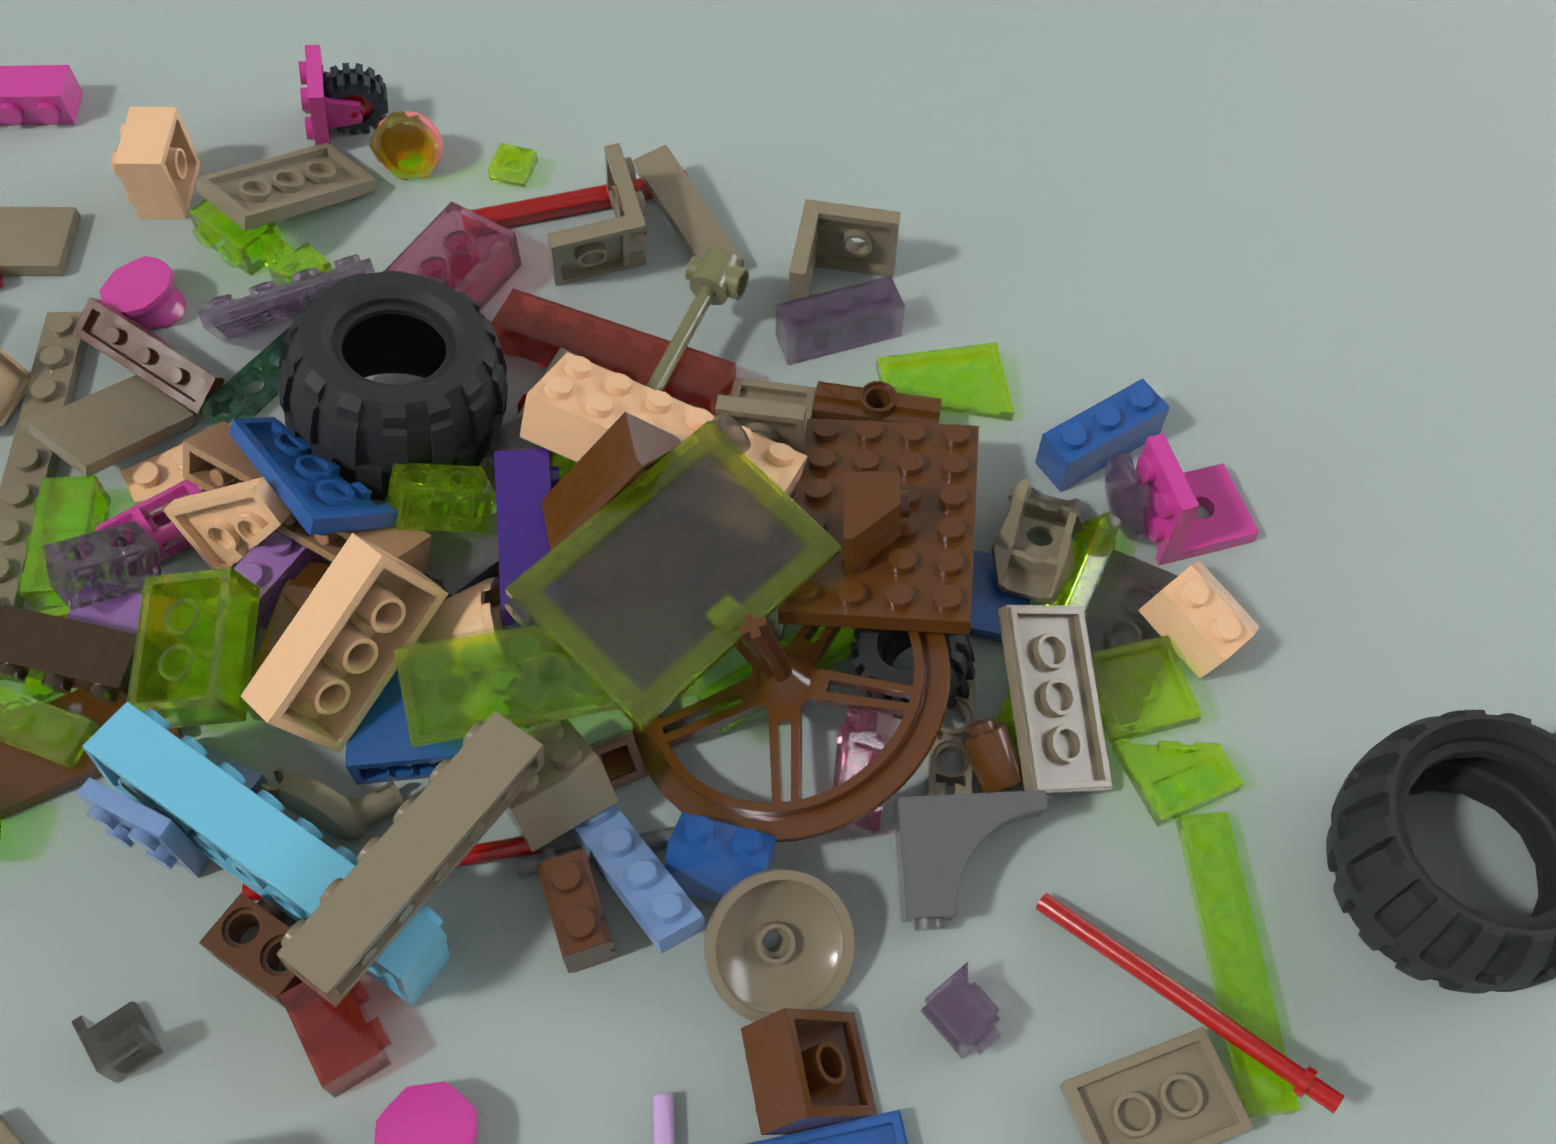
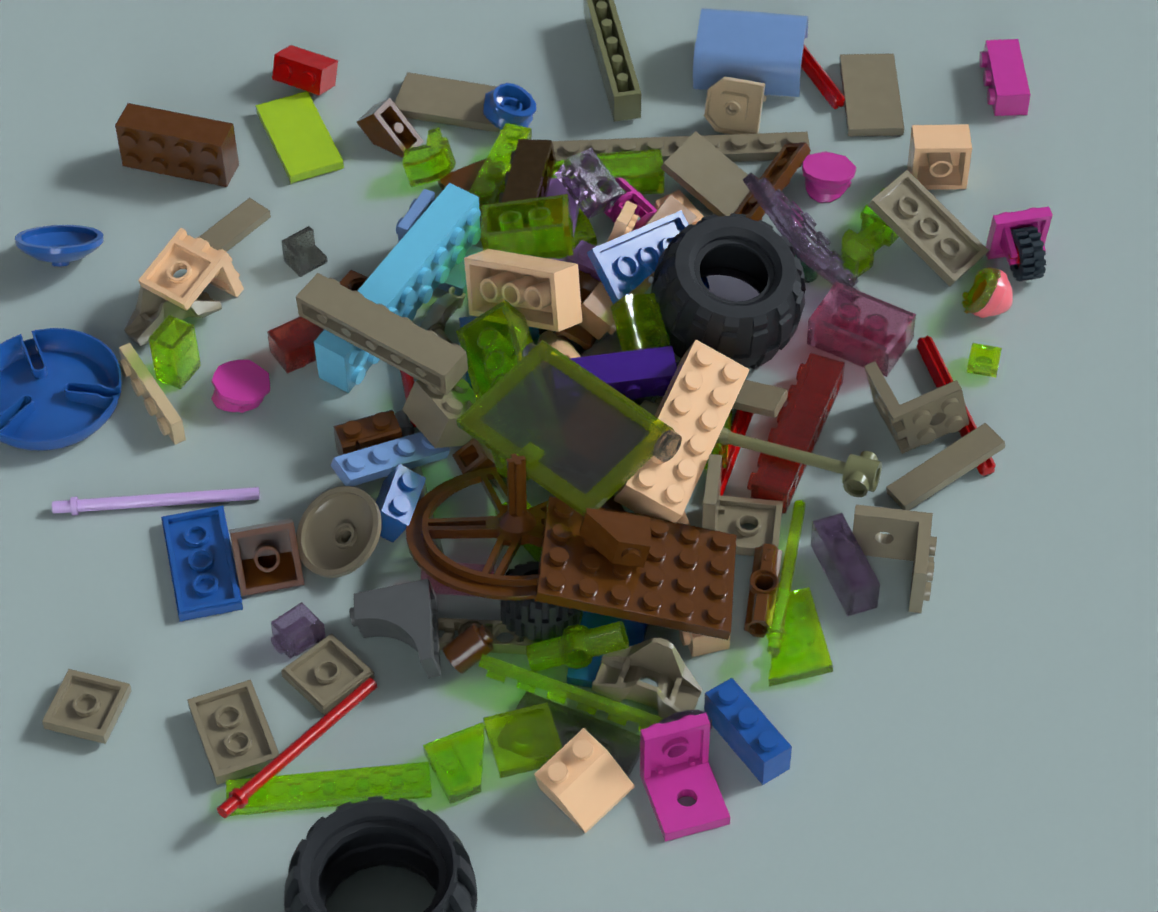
camera: 90 degrees right, 10 degrees down
(603, 473) = (640, 387): reddish brown slope -> none
(908, 382) = (776, 632): none -> clear neon green bar
(990, 592) = (577, 646): none -> clear neon green piece
(1028, 968) = (326, 673): none -> dark tan tile
(1054, 699) = (507, 677): dark tan tile -> none

